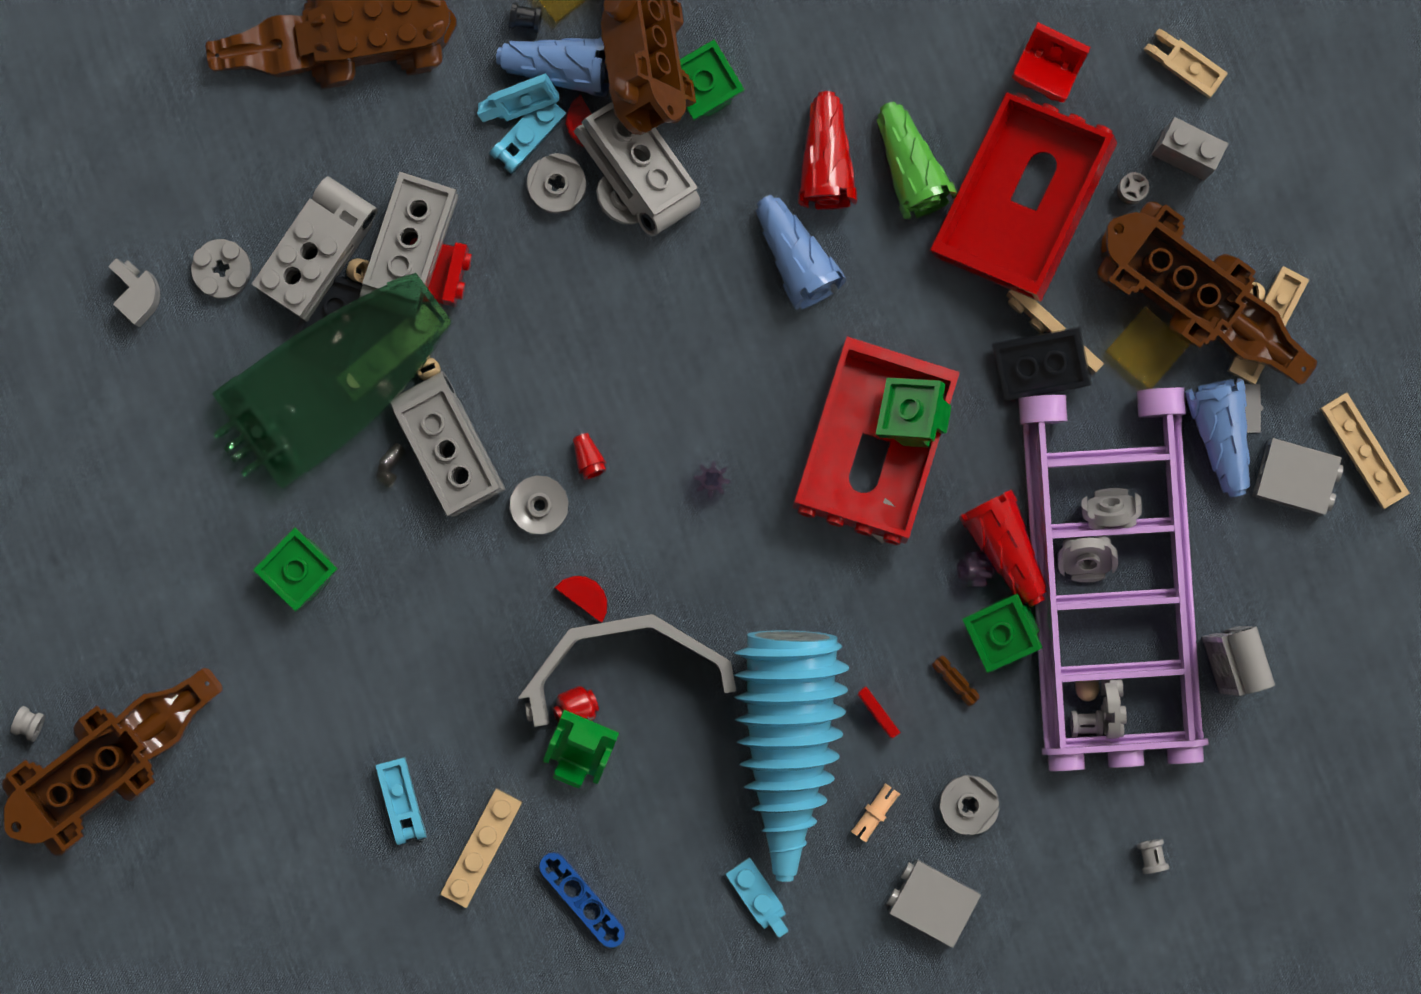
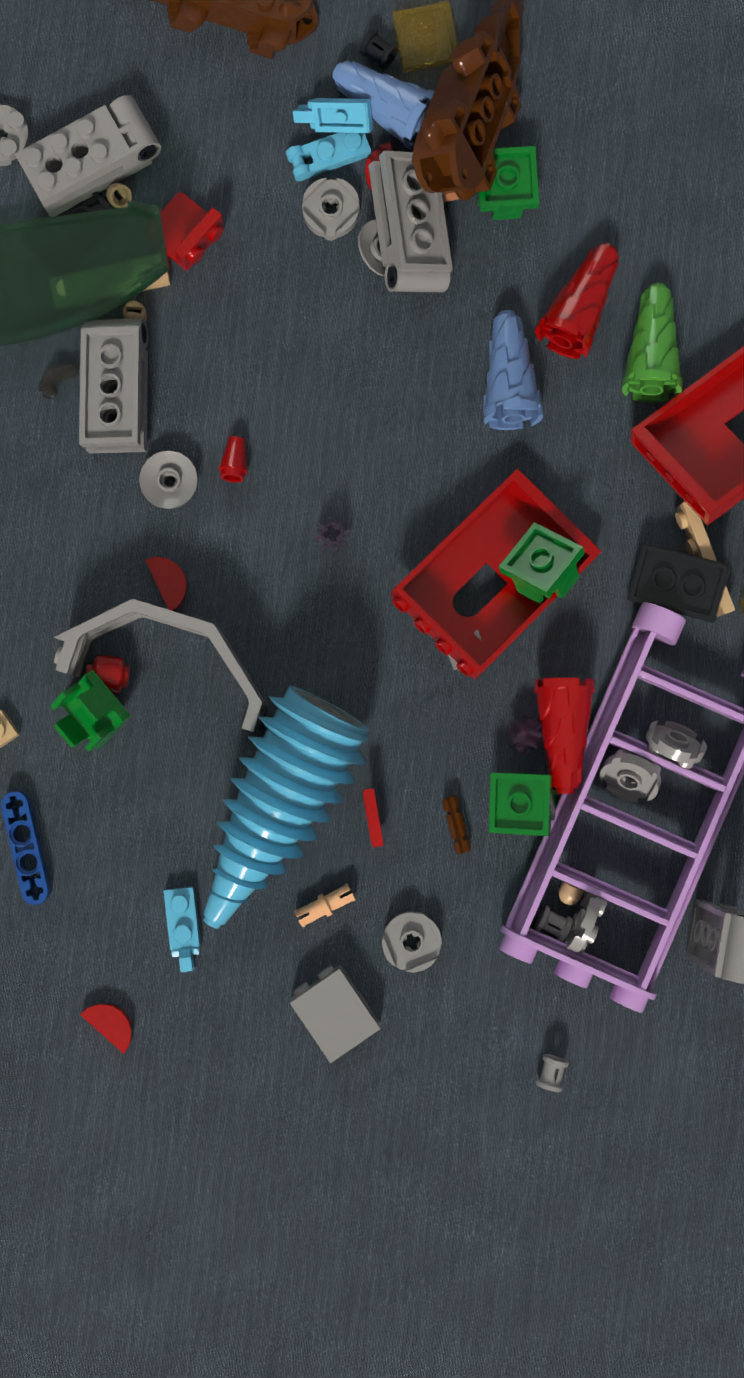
camera: 30 degrees right, 0 degrees up
(392, 257) = (177, 169): light grey hinge -> none

